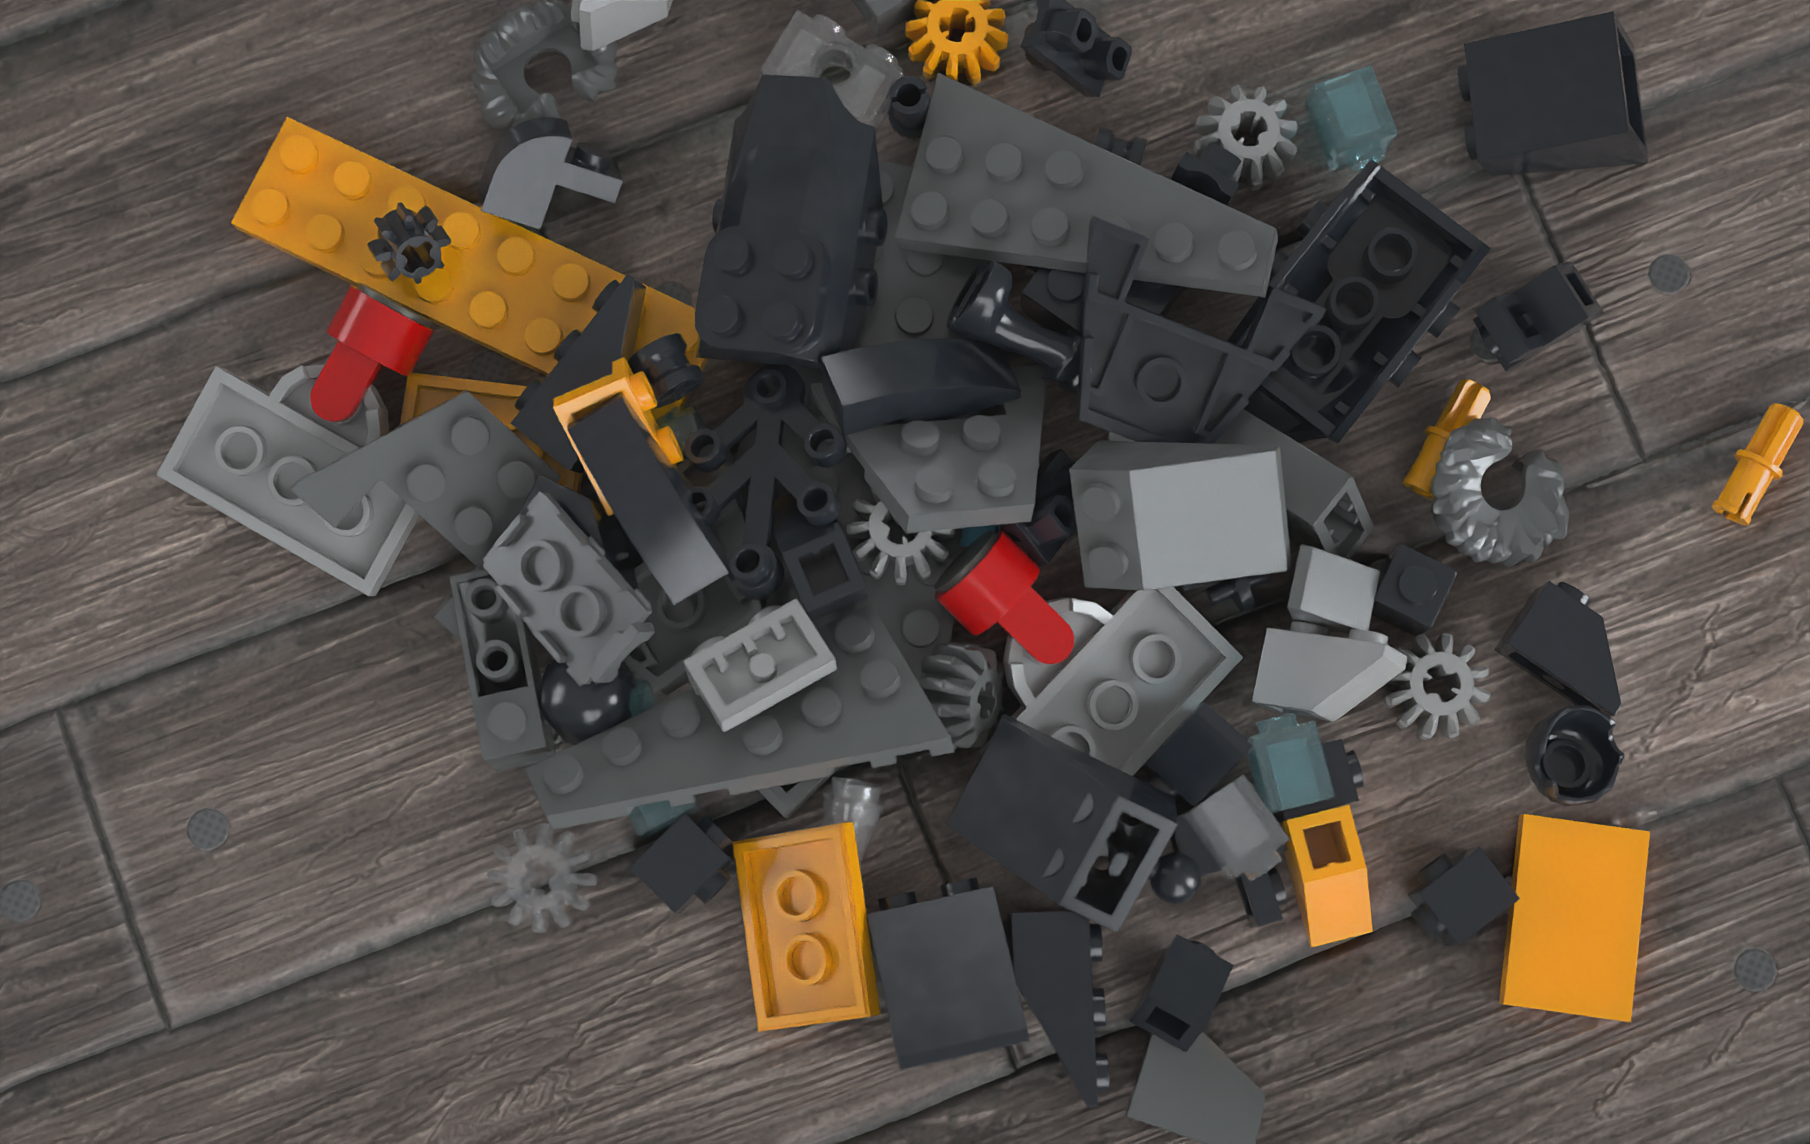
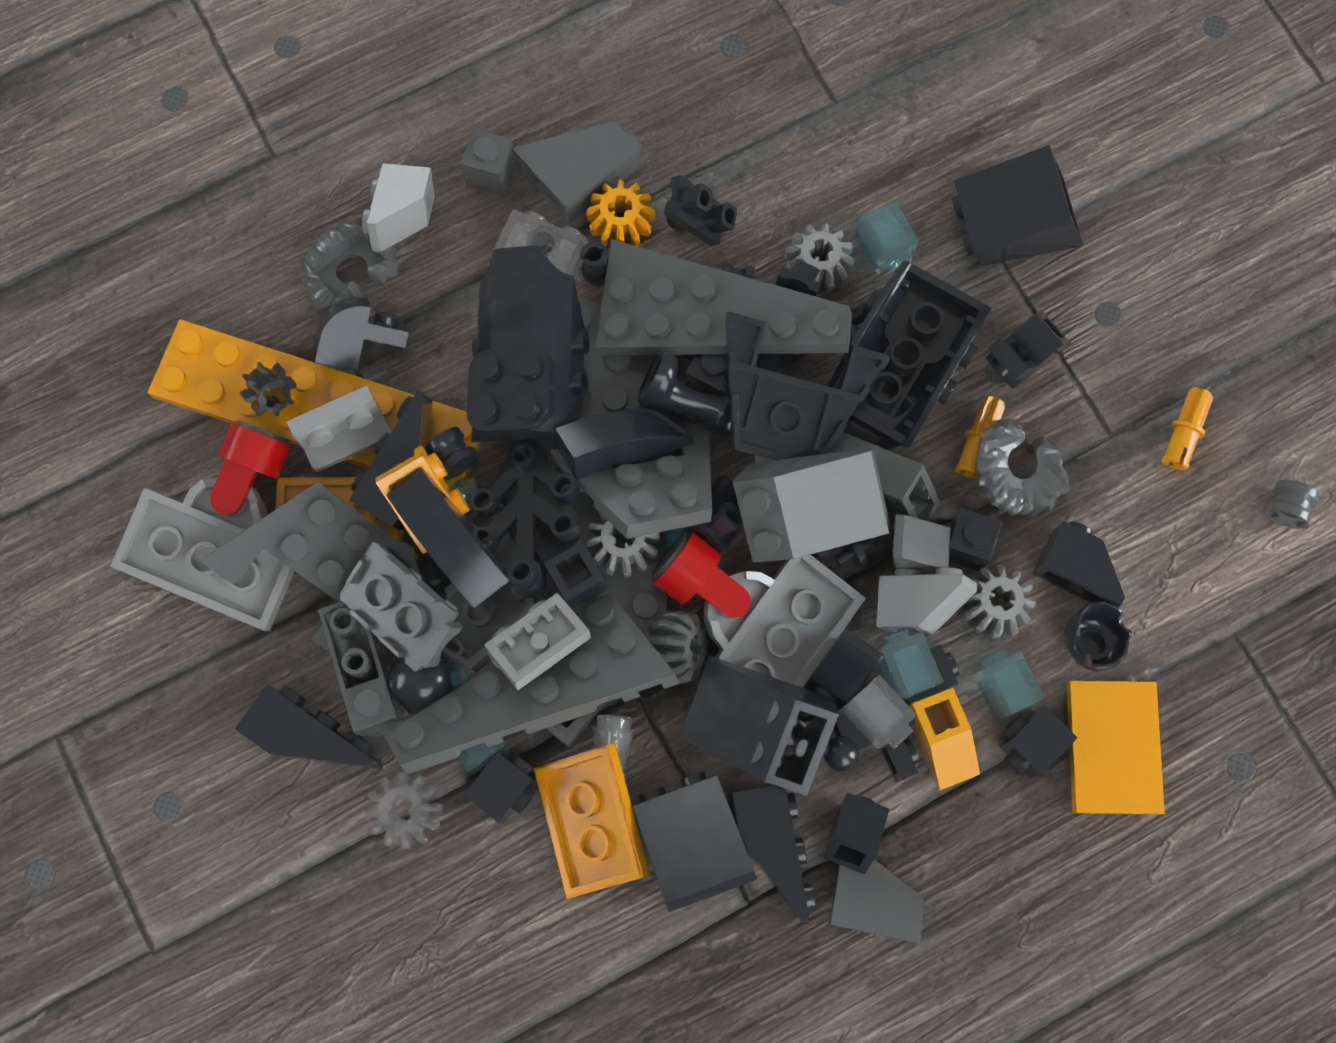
camera: 10 degrees left, 5 degrees down
(393, 745) = (290, 731): none -> black slope
(508, 316) = (339, 428): none -> light grey bracket
(1432, 807) = (1007, 684): none -> clear light blue brick

